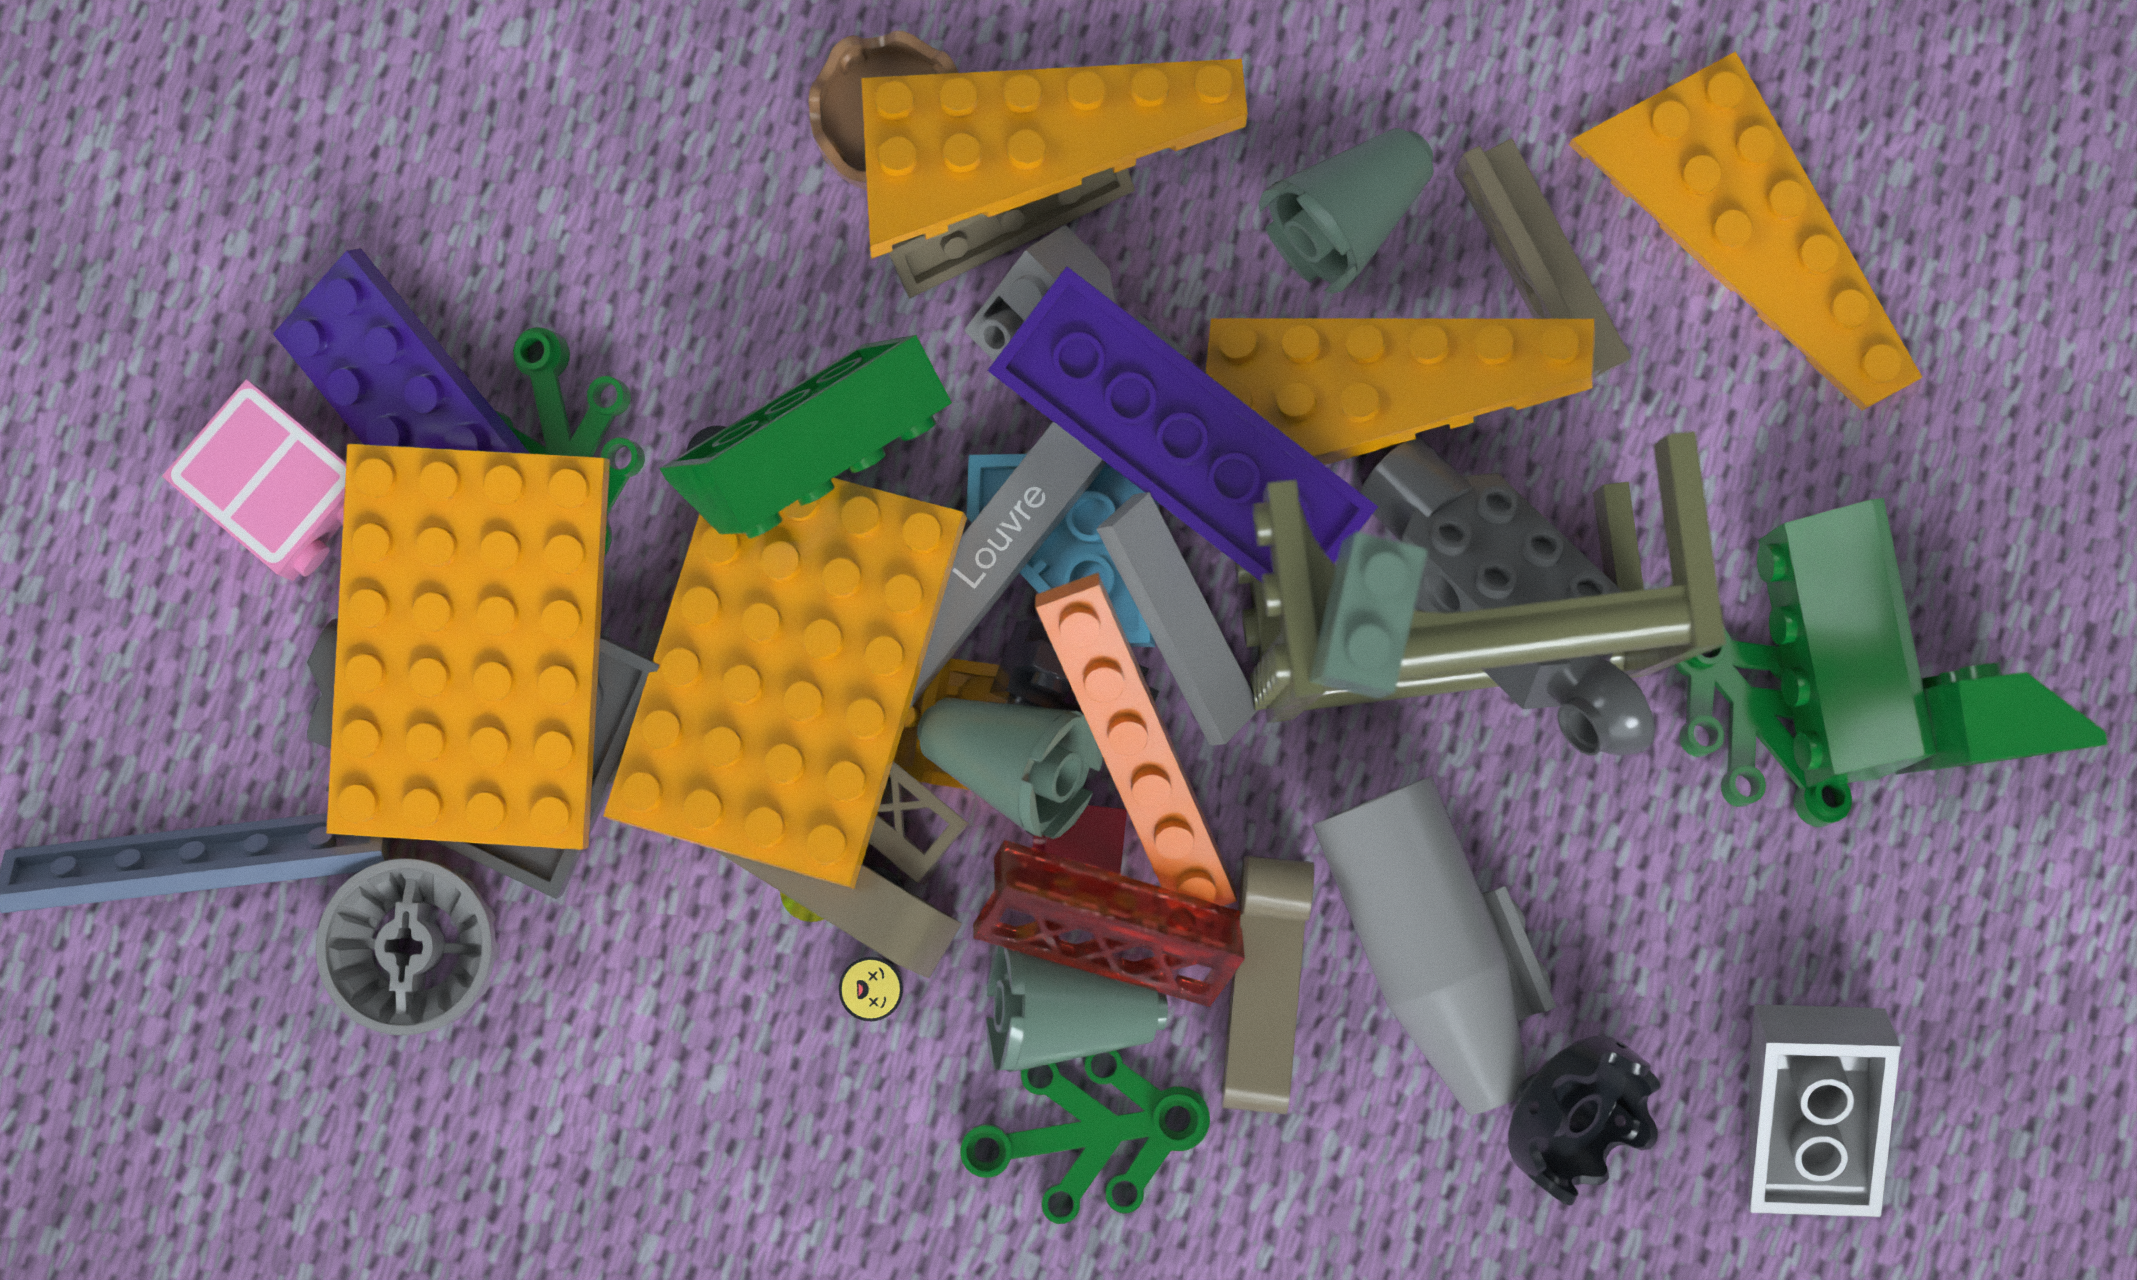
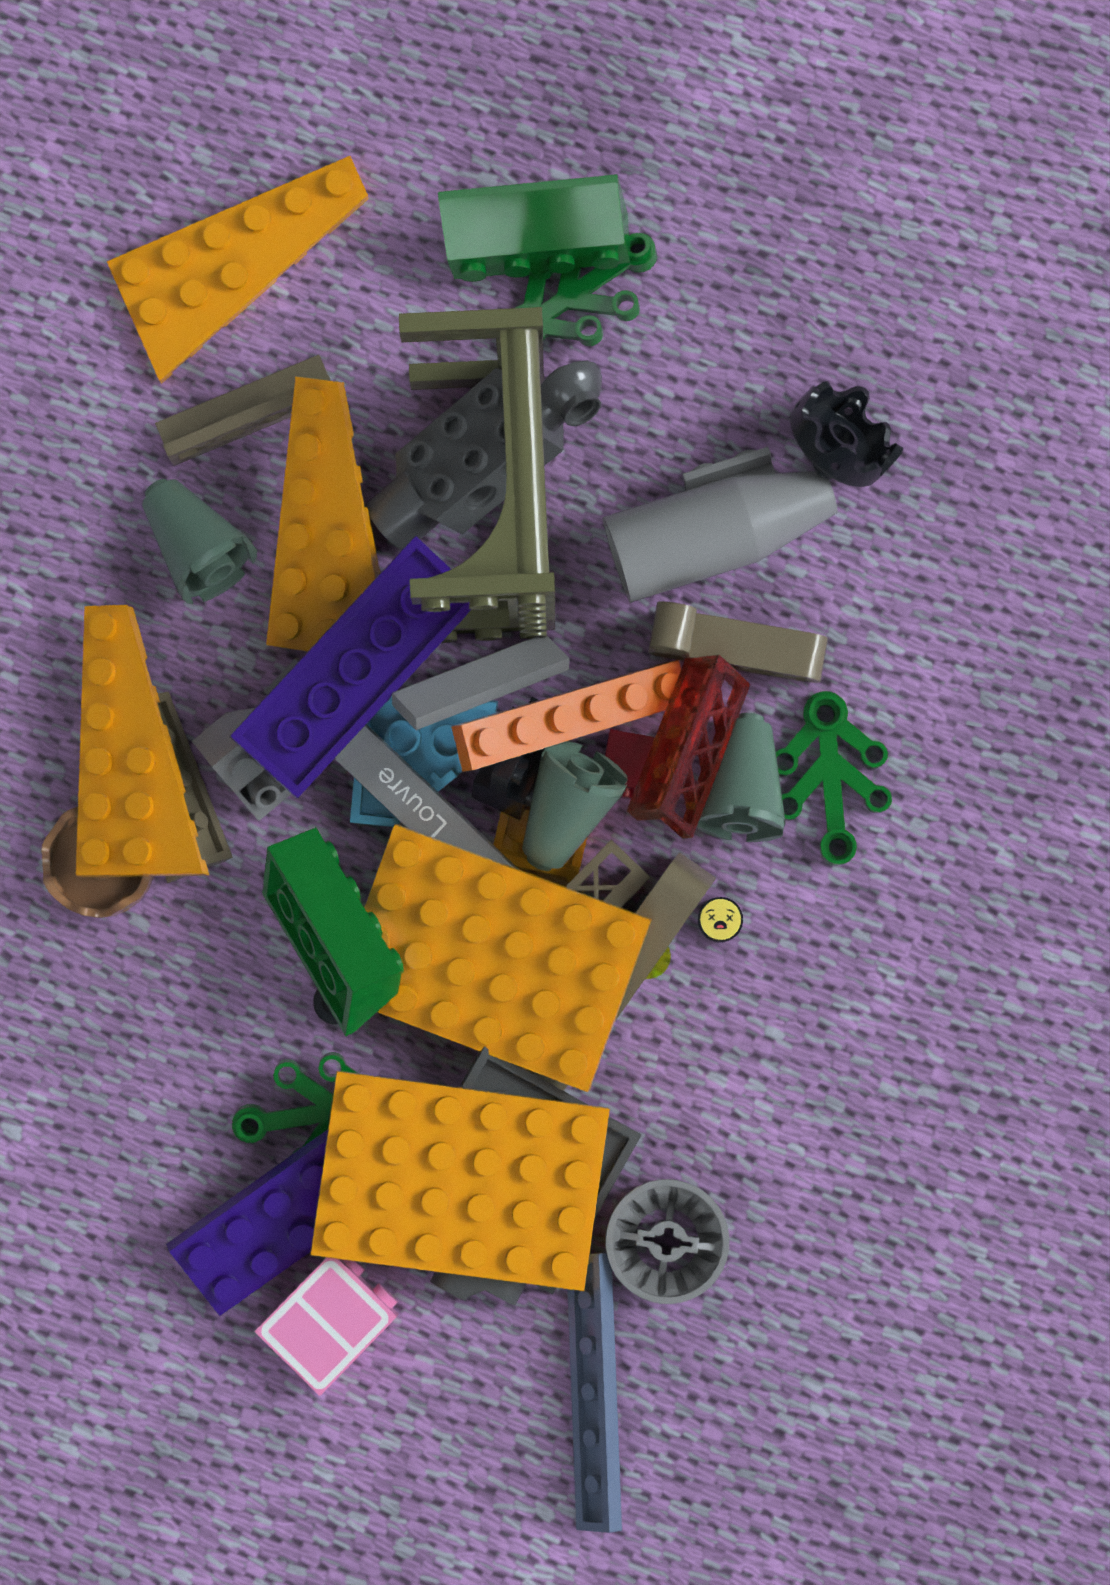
camera: 85 degrees left, 0 degrees up
(1368, 615) = (506, 537): sand green brick -> none
(1820, 1109) = (850, 275): light grey slope -> none
(1999, 717) = (598, 132): green slope -> none

